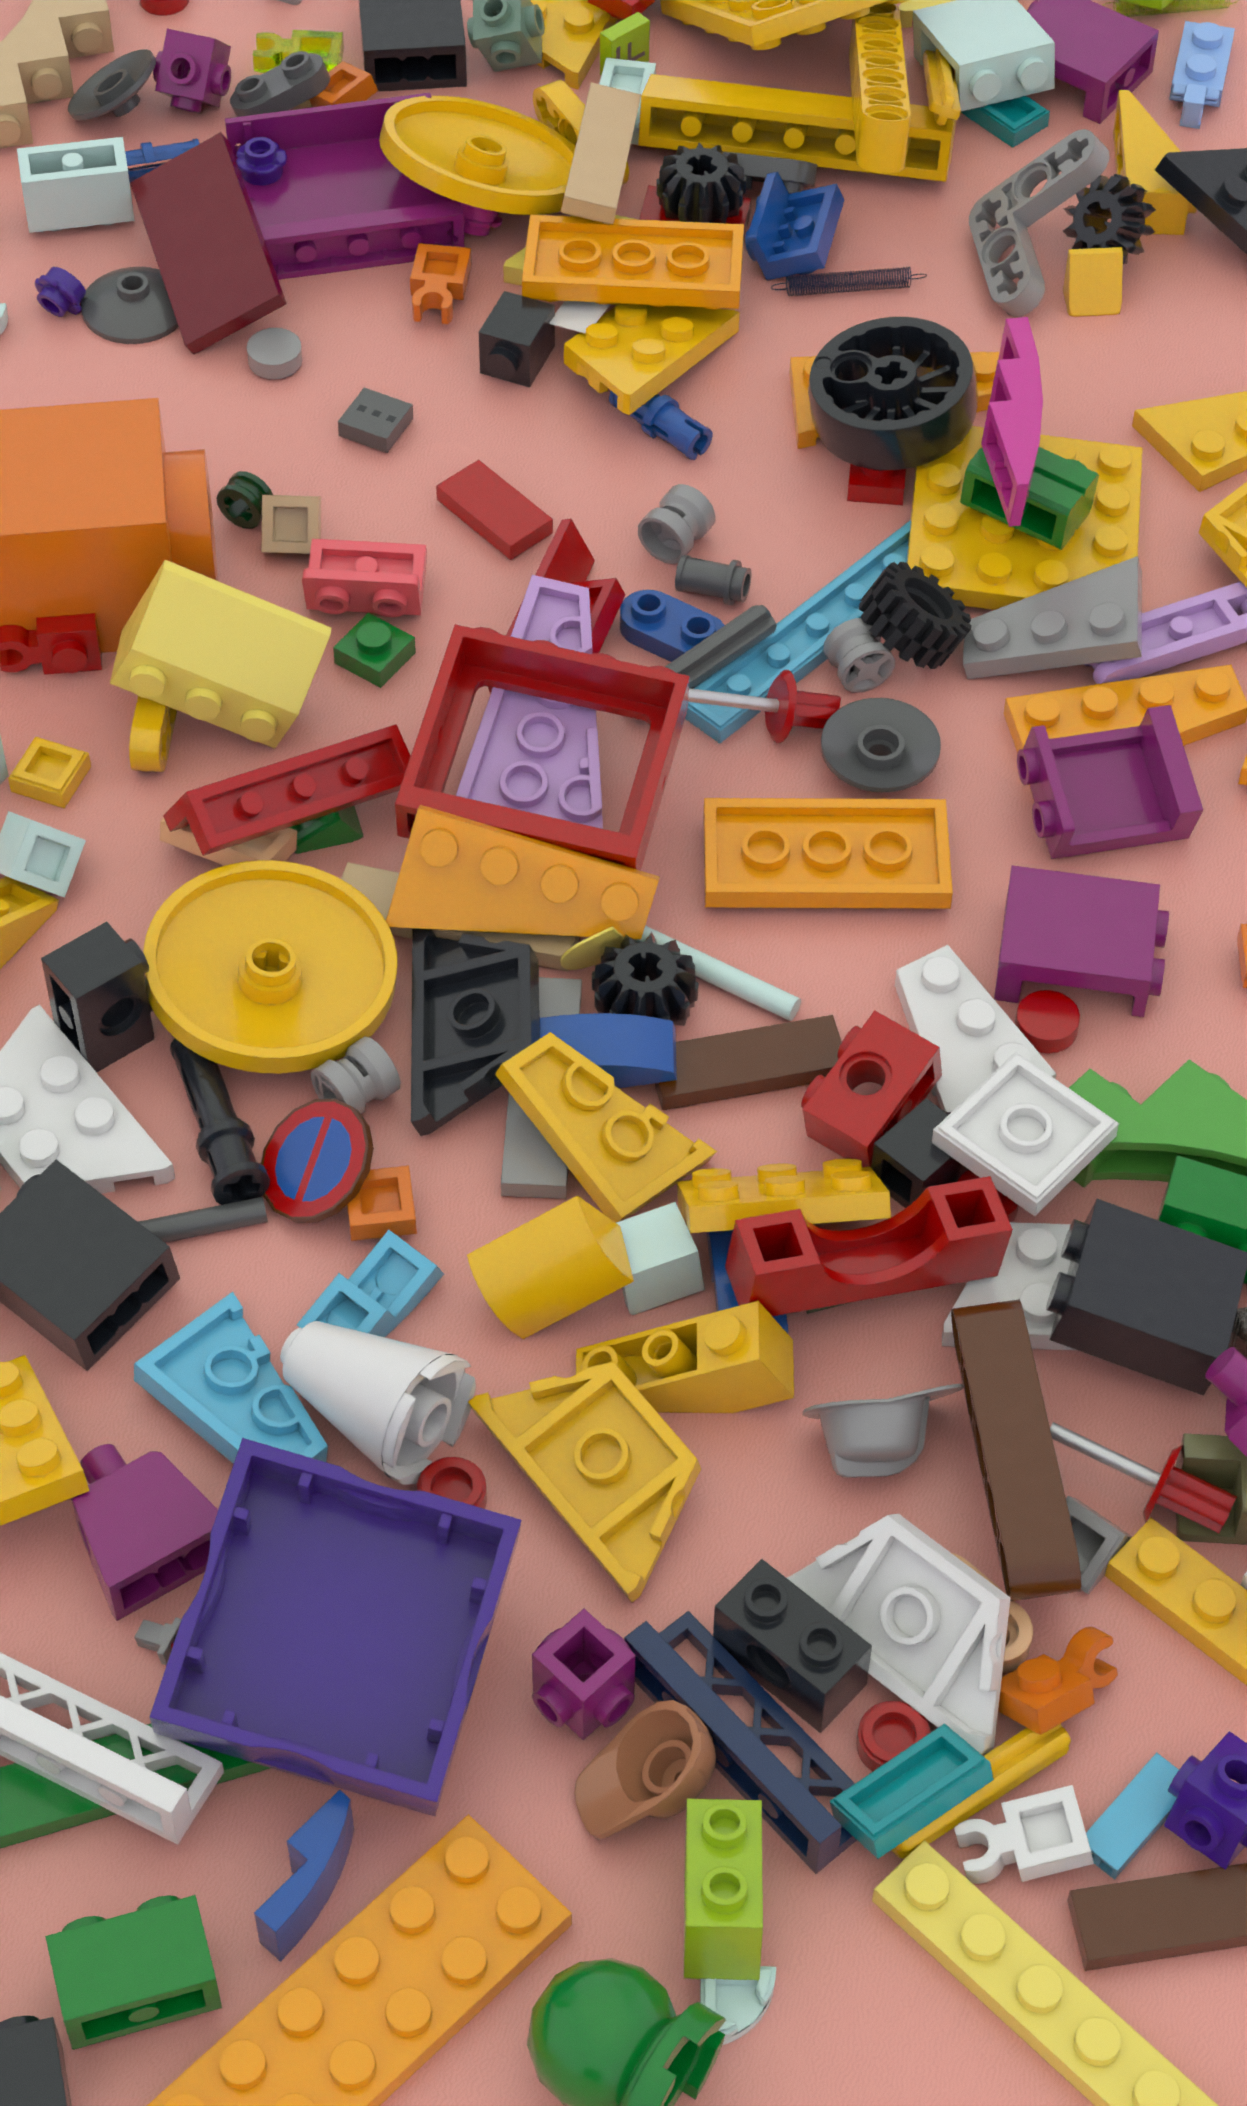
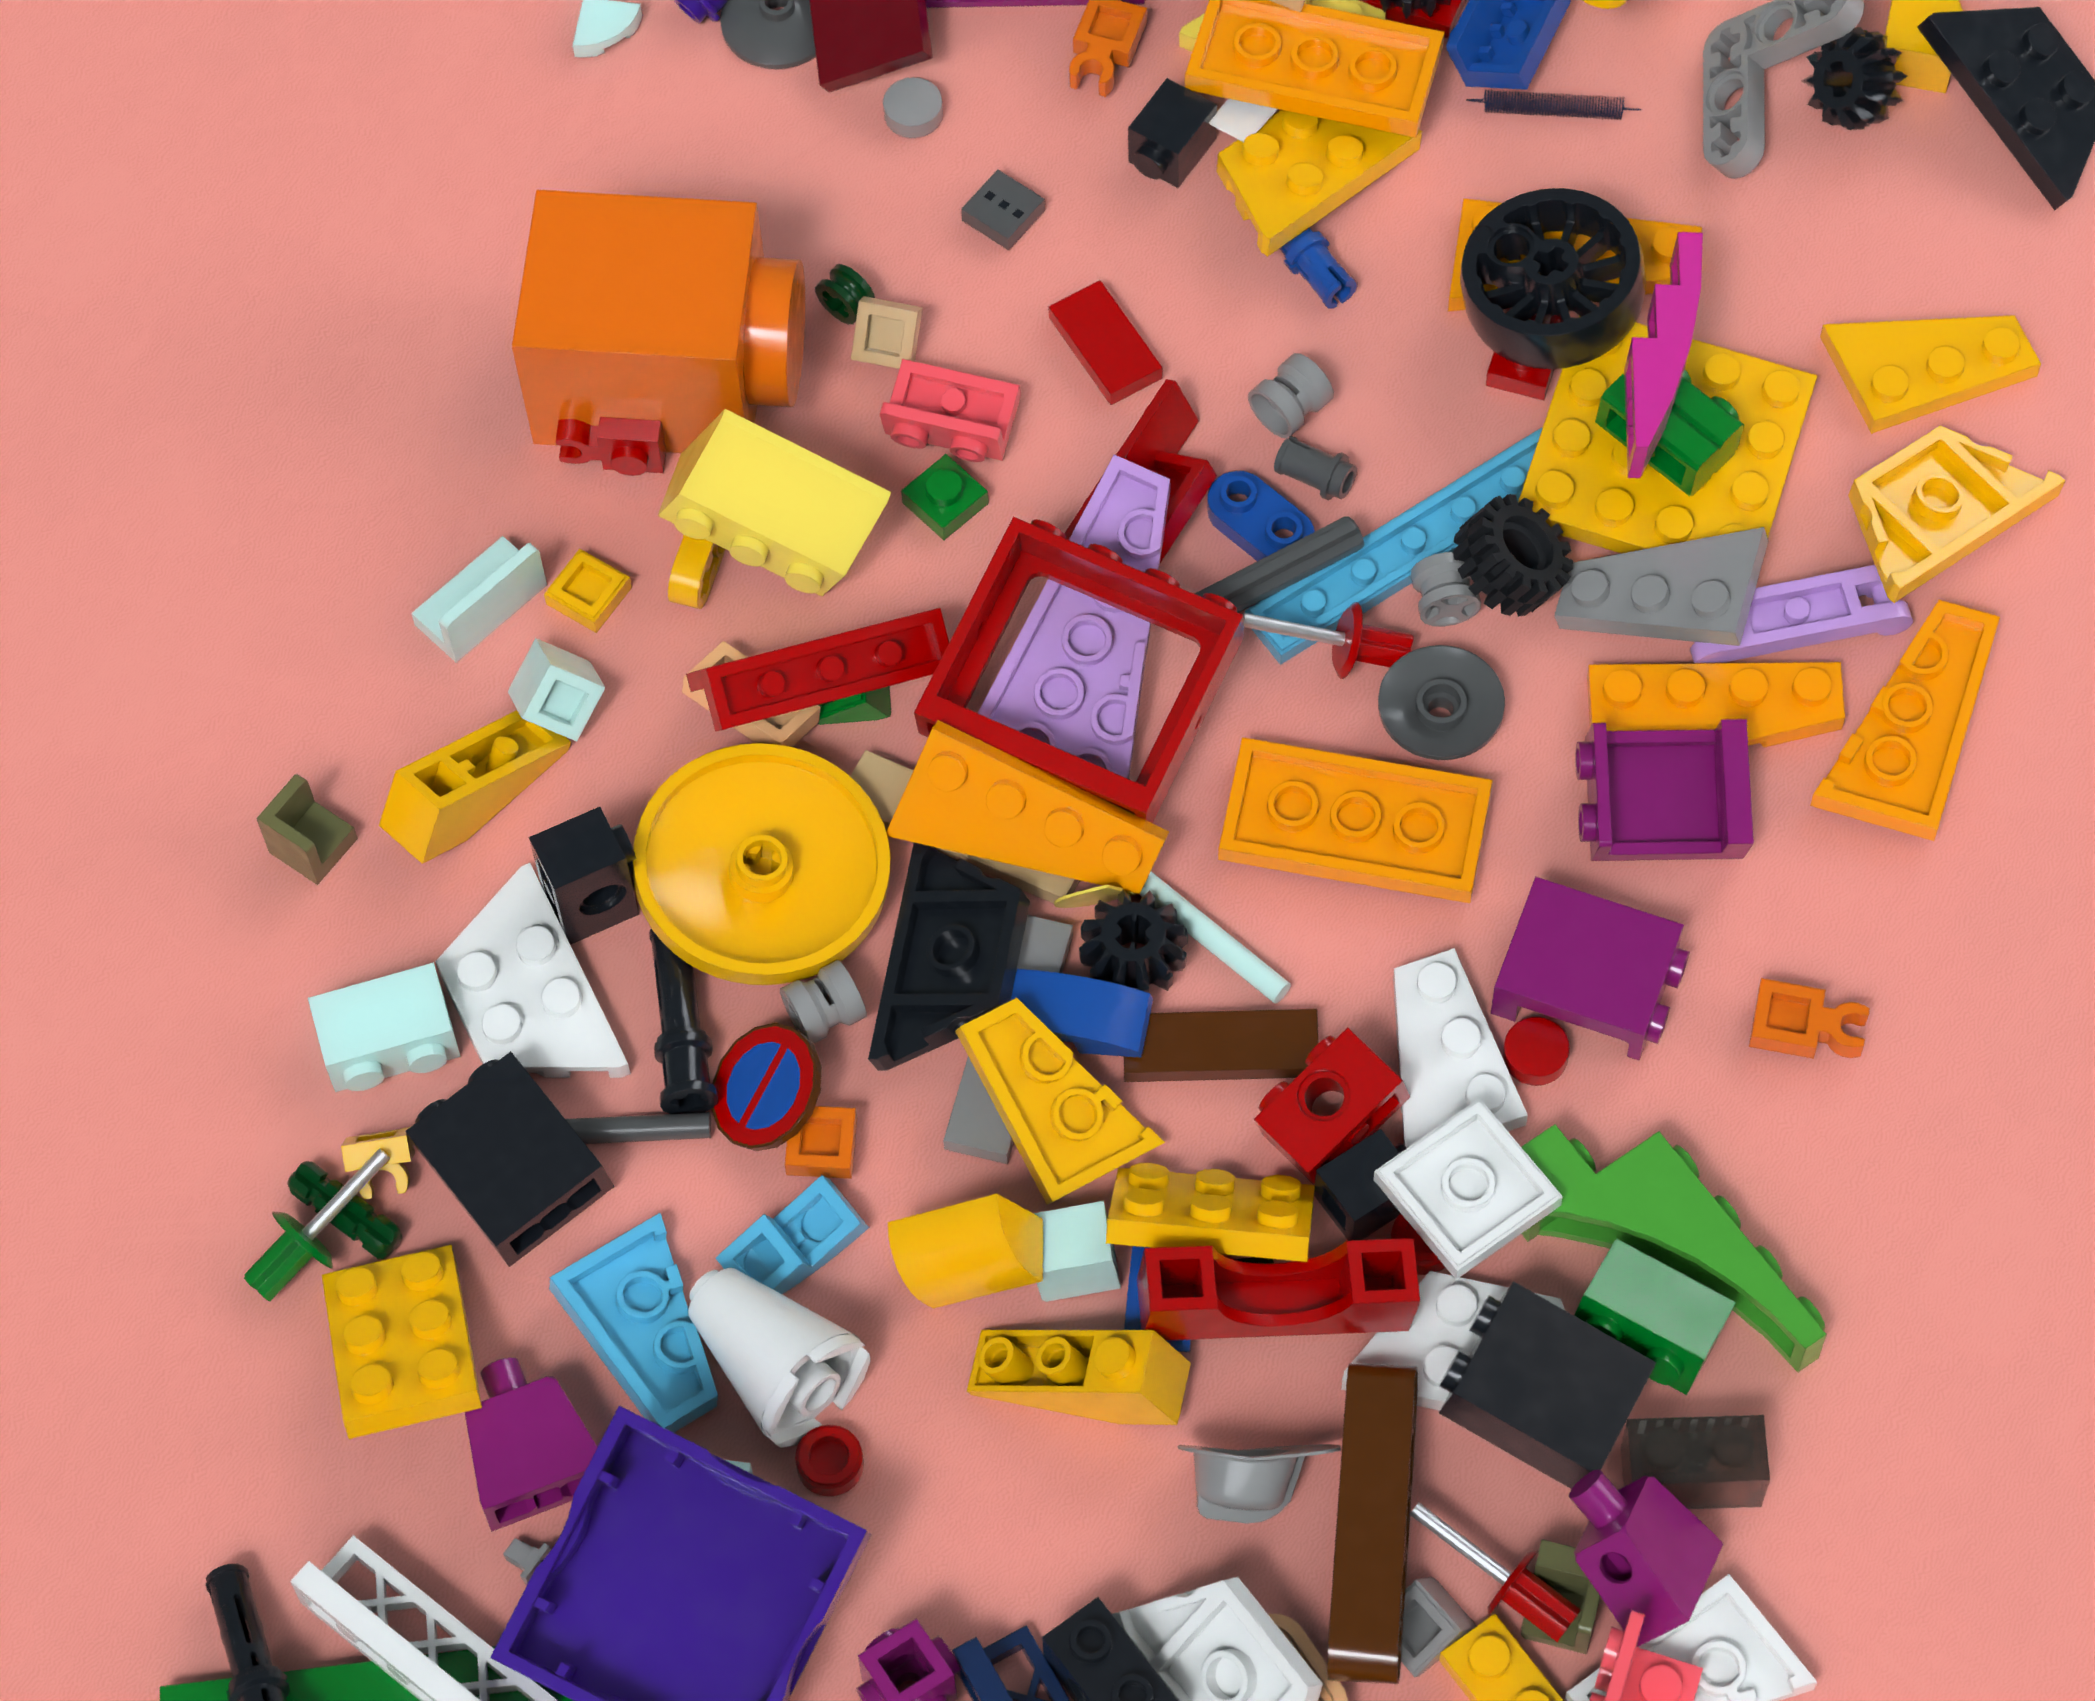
camera: 15 degrees right, 10 degrees up
(599, 1463) = (971, 1461): yellow wing -> none
(1093, 281) = (1821, 151): yellow slope -> none

